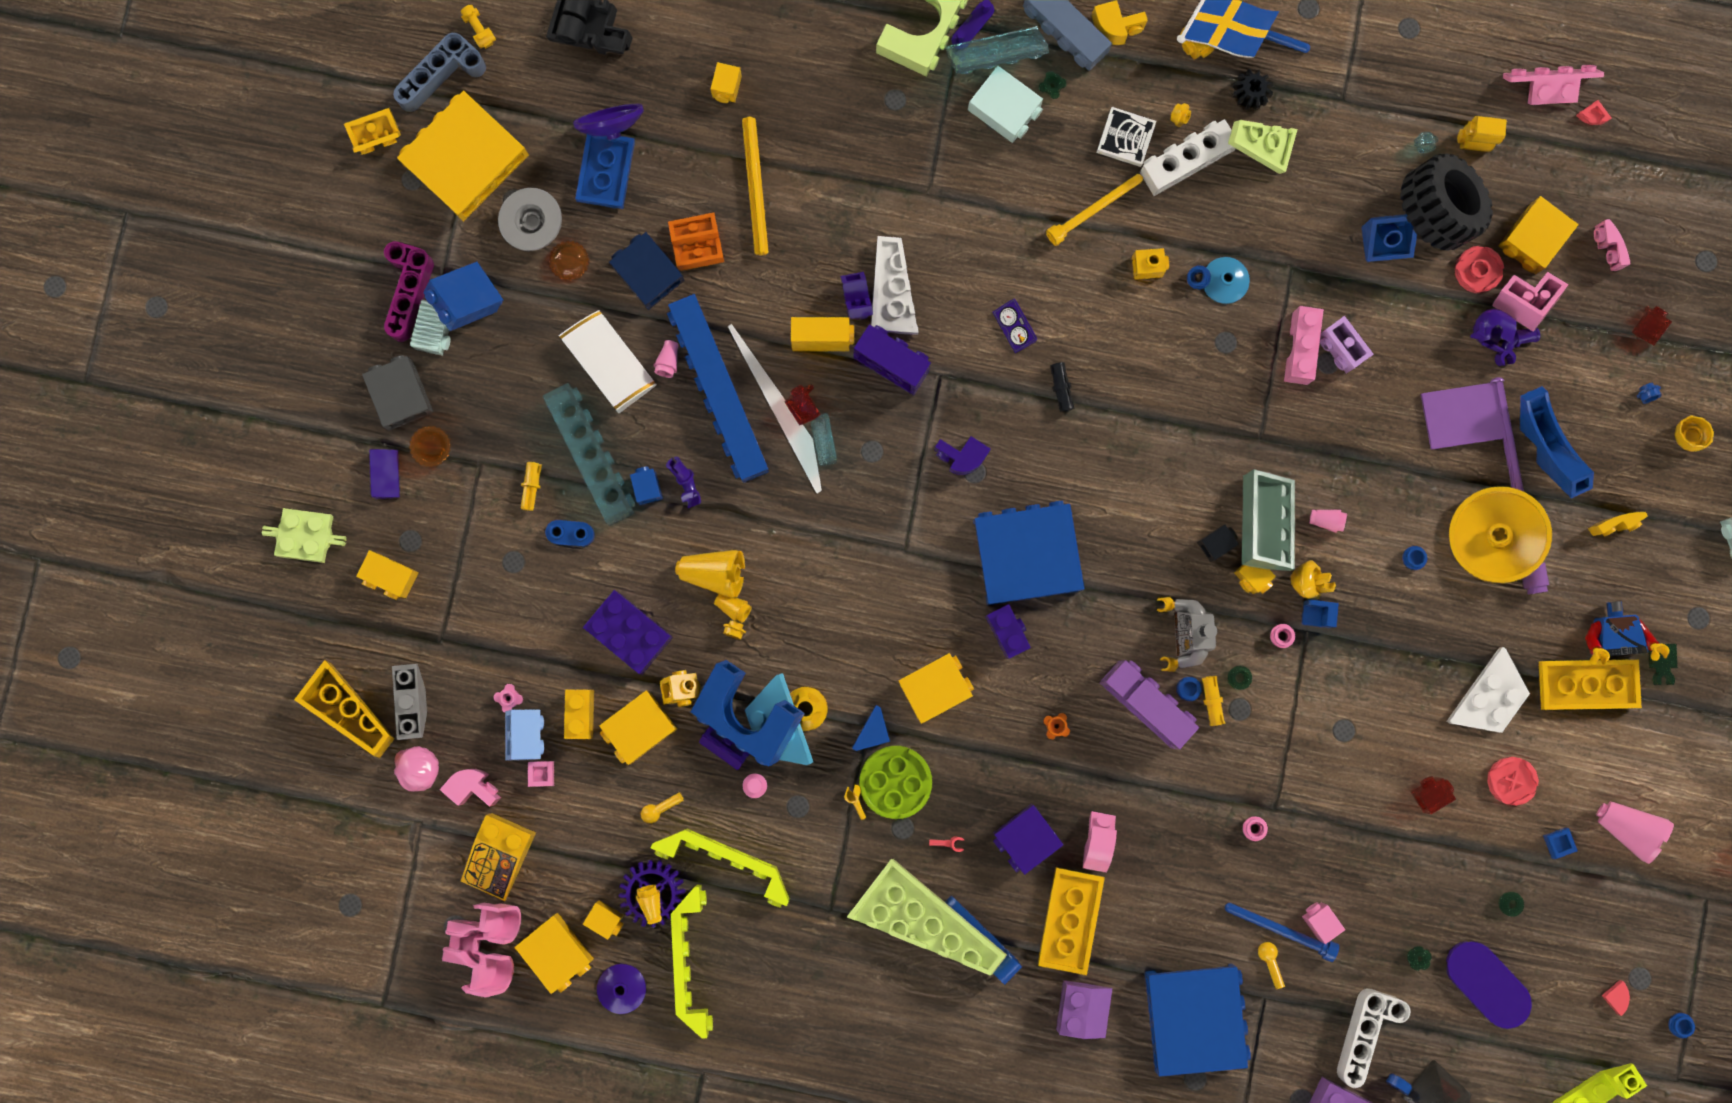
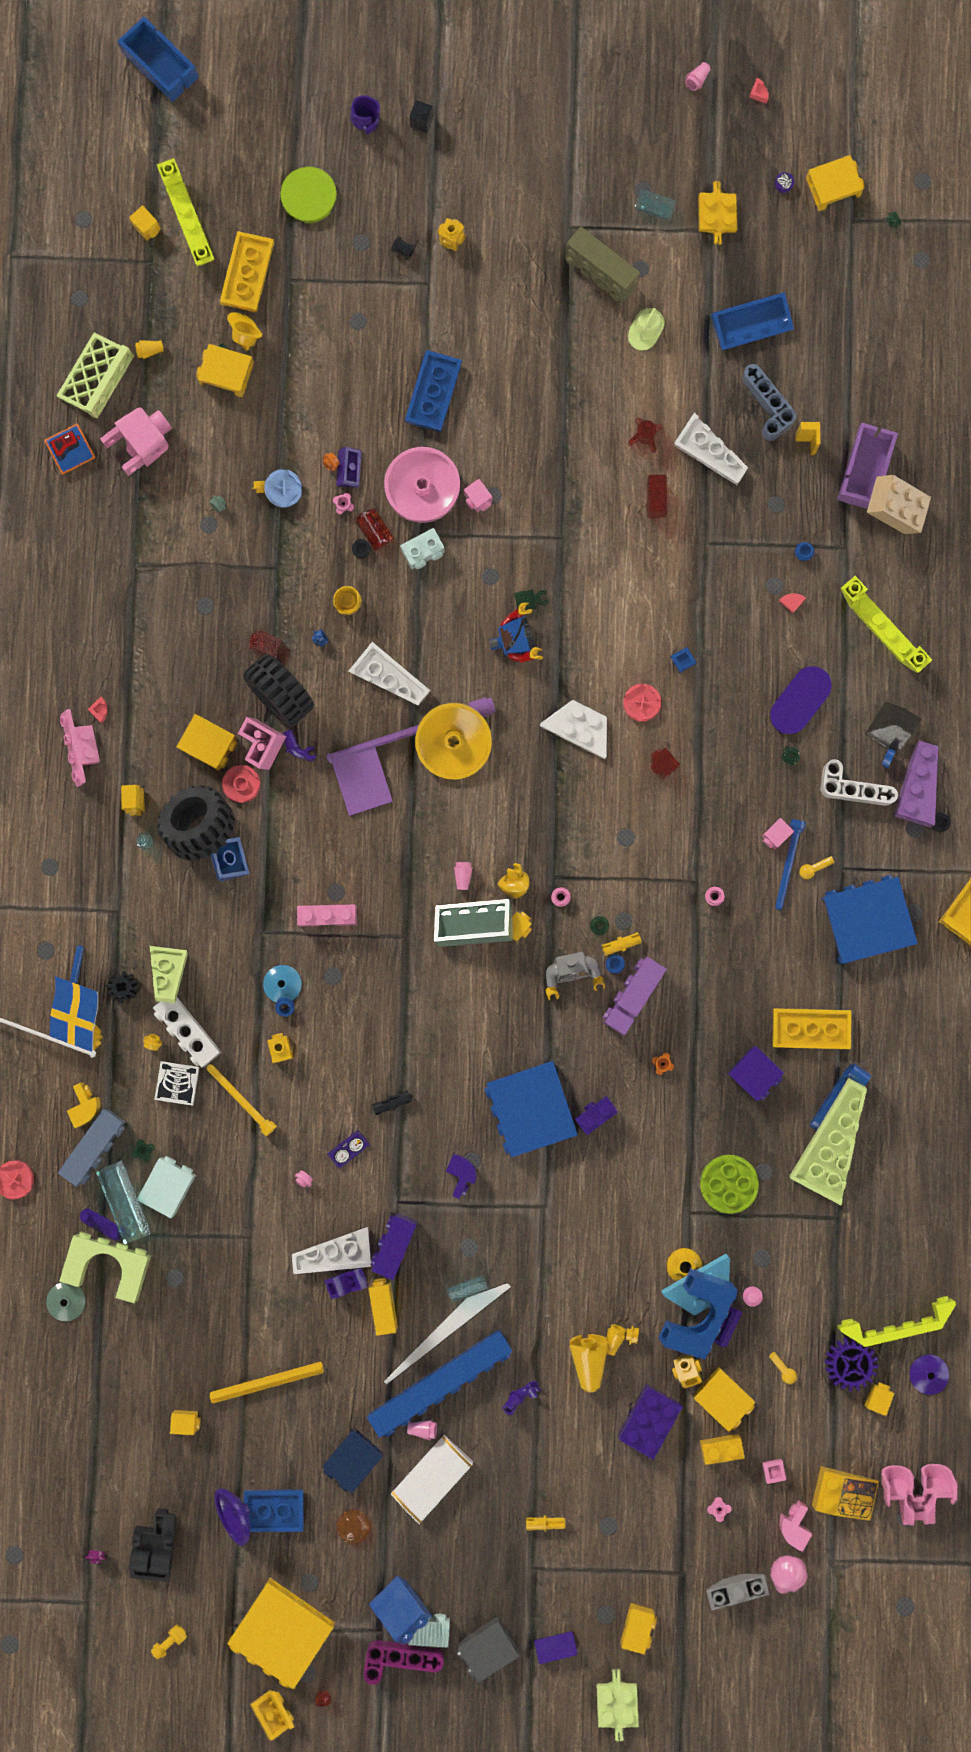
camera: 90 degrees left, 0 degrees up
(342, 708) = (751, 1645): yellow wedge -> none
(379, 192) = (322, 1700): none -> clear red hinge
(430, 446) = (527, 1613): clear orange hat -> none
(437, 75) = (217, 1669): sand blue beam -> none
(523, 735) = (746, 1491): light blue brick -> none
(530, 219) = (326, 1566): light grey hat -> none
(555, 954) = (912, 1433): yellow brick -> none
(557, 402) = (475, 1514): clear light blue brick -> none
(569, 533) = (577, 1484): blue plate -> none
(646, 485) = (529, 1428): blue brick -> none
(649, 902) = (859, 1365): yellow cone -> none
(696, 241) = (321, 1423): orange slope -> none
(776, 890) = (833, 1265): neon yellow slope -> none
(801, 404) = (442, 1313): clear red bracket -> none
(853, 797) = (748, 1216): yellow hand -> none
(873, 732) = (694, 1209): blue slope -> none
(936, 687) = (650, 1165): yellow brick -> none
(947, 843) = (769, 1135): coral hand -> none
(987, 266) = (303, 1179): none -> bright pink plate
(1083, 1010) = (878, 1007): medium lavender slope -> none
(1100, 842) = (747, 1016): bright pink brick -> none
(1218, 542) = (496, 959): black brick -> none
(1320, 613) = (538, 871): blue panel -> none
(1345, 345) = (322, 883): lavender brick -> none
(1414, 558) = (481, 802): blue plate -> none
(1492, 327) = (289, 768): dark purple helmet -> none
(1504, 904) = (730, 691): clear green plate -> none
(1553, 450) = (377, 710): blue arch -> none
(1589, 685) = (560, 659): yellow plate -> none
(1599, 327) = (278, 690): none -> black tyre
(1604, 455) = (385, 672): none -> white wing
(1609, 237) = (200, 687): bright pink slope -> none
(1622, 522) = (425, 644): yellow slope -> none
(1635, 829) = (663, 607): bright pink cone -> none

